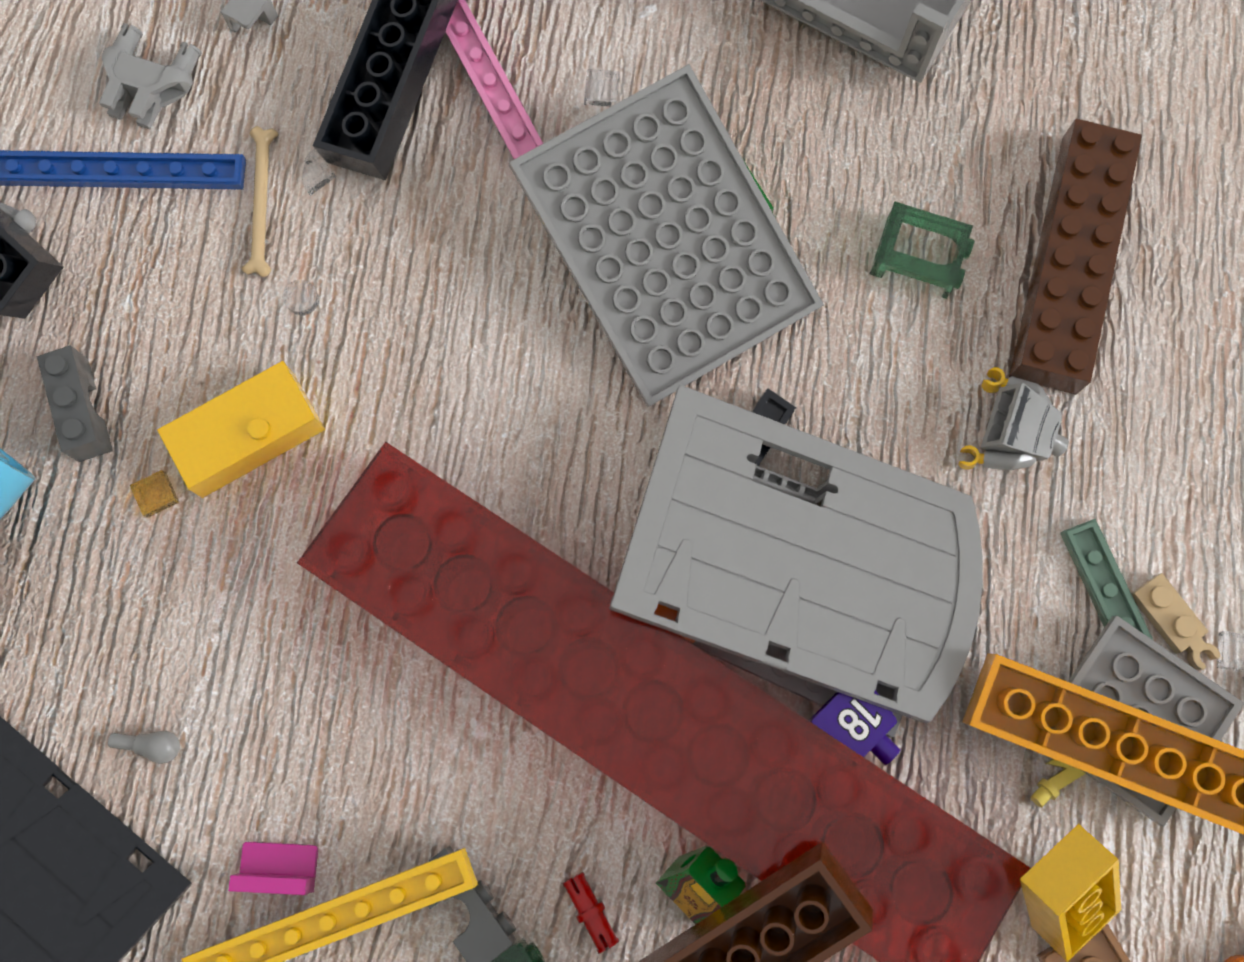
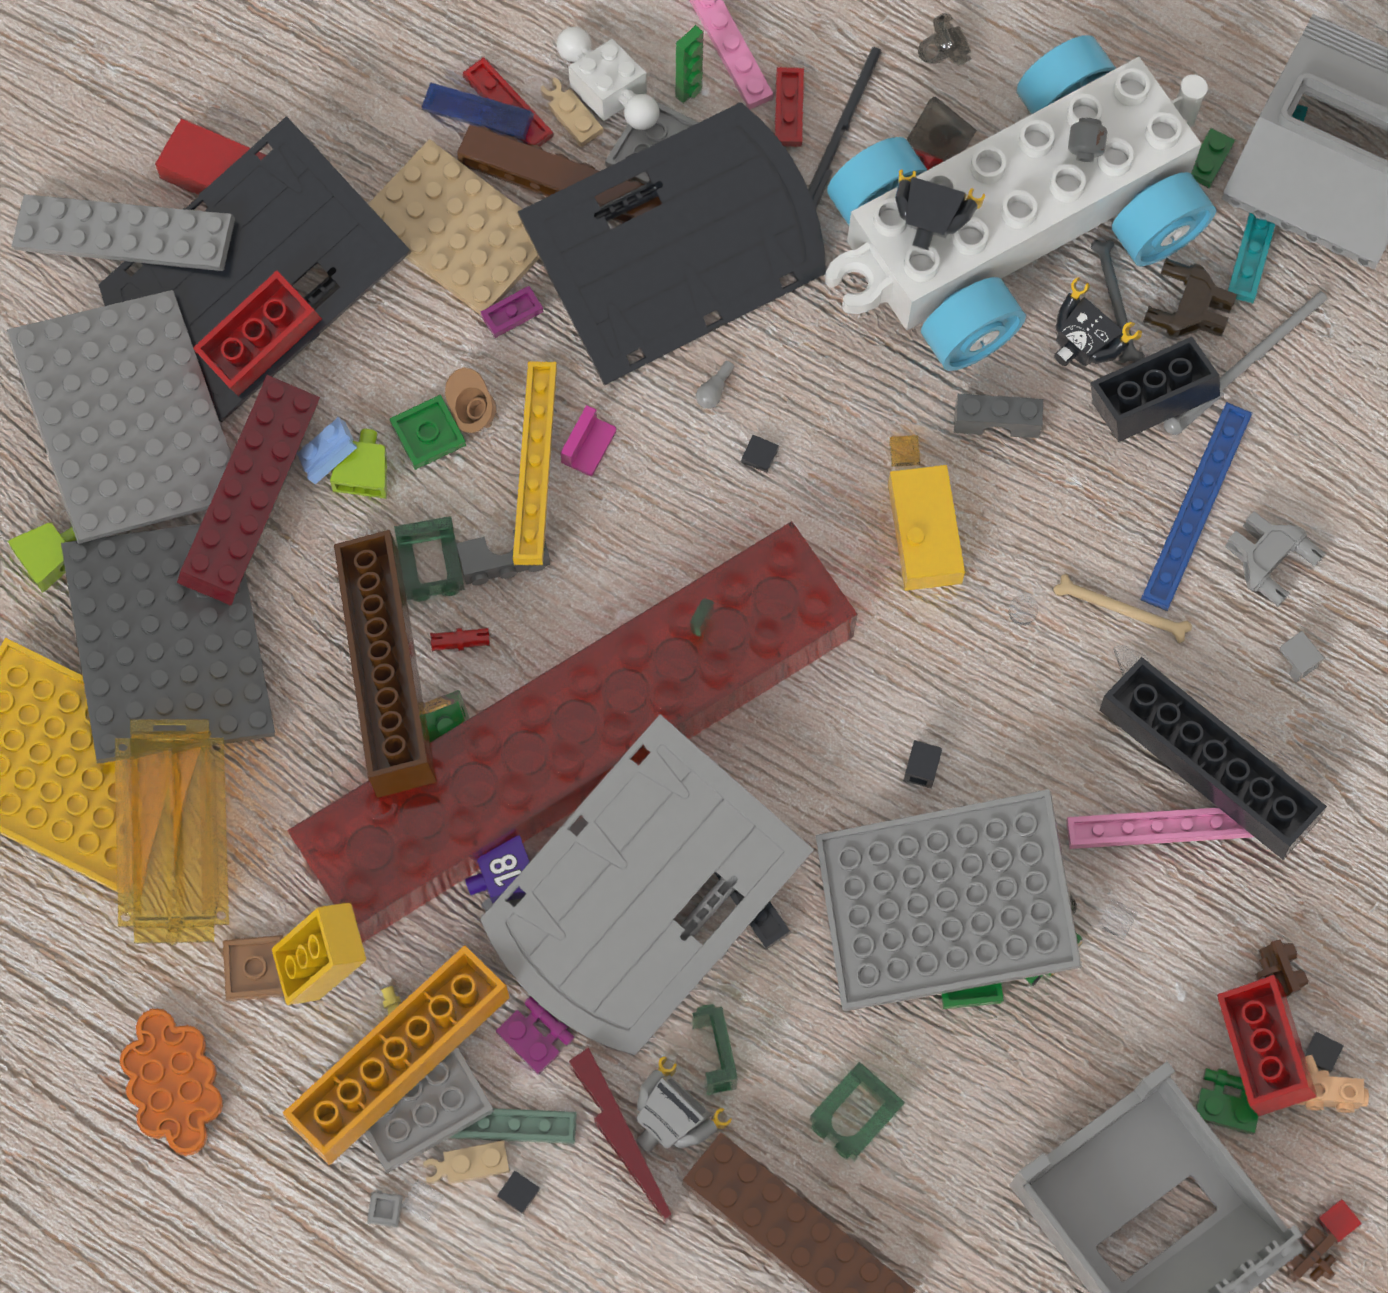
camera: 110 degrees right, 5 degrees down
(216, 655) = (760, 453): none -> black tile
(468, 607) = (701, 616): none -> tile
(521, 328) = (922, 764): none -> black panel
(962, 387) = (725, 1078): none -> clear green panel
(1015, 613) = (528, 1041): none -> magenta plate
(1063, 480) = (615, 1129): none -> dark red slope
(1175, 554) = (518, 1192): none -> black tile

